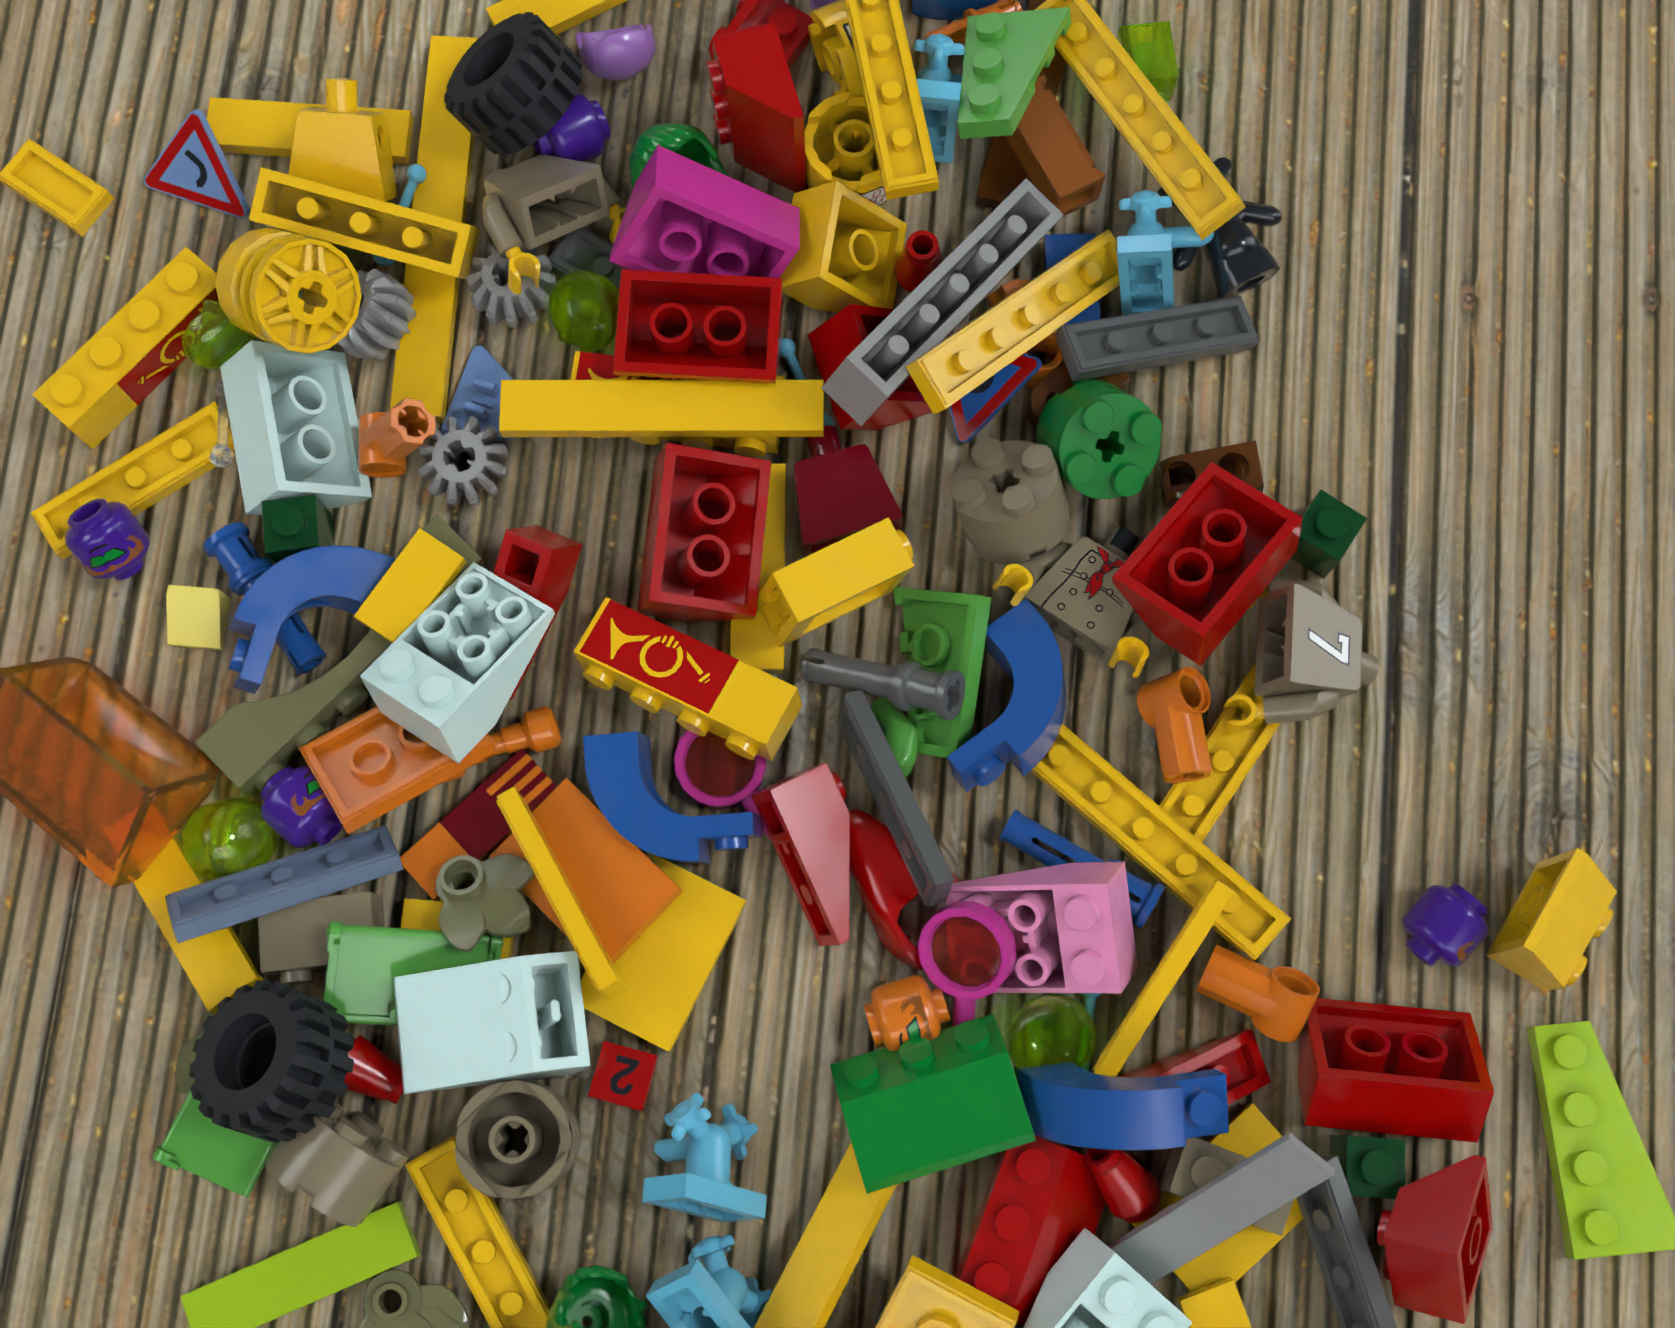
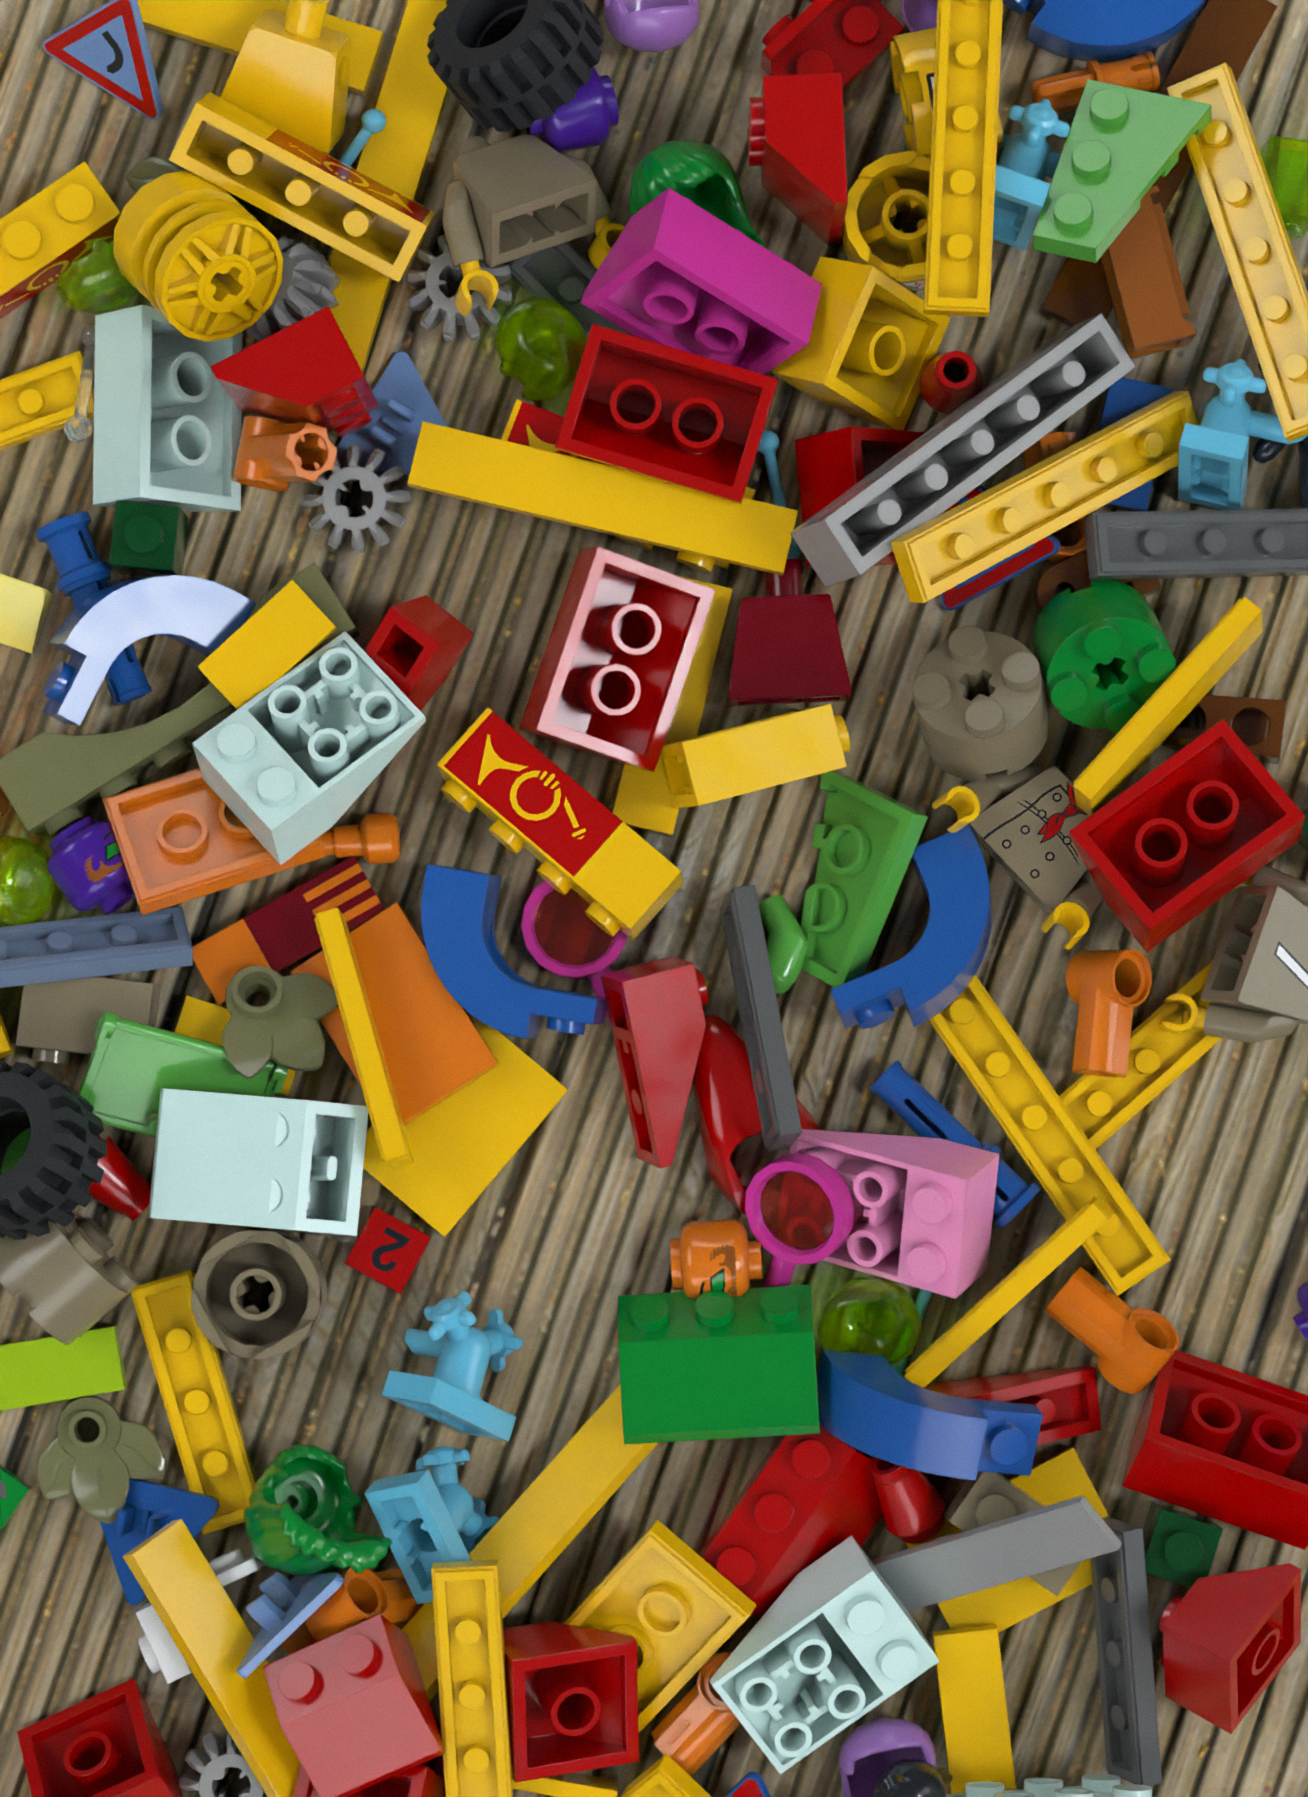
camera: 20 degrees right, 10 degrees up
(387, 356) = (301, 377): none -> red slope
(904, 685) = (804, 893): dark grey pin -> none
(1163, 463) = (1168, 706): none -> yellow tile

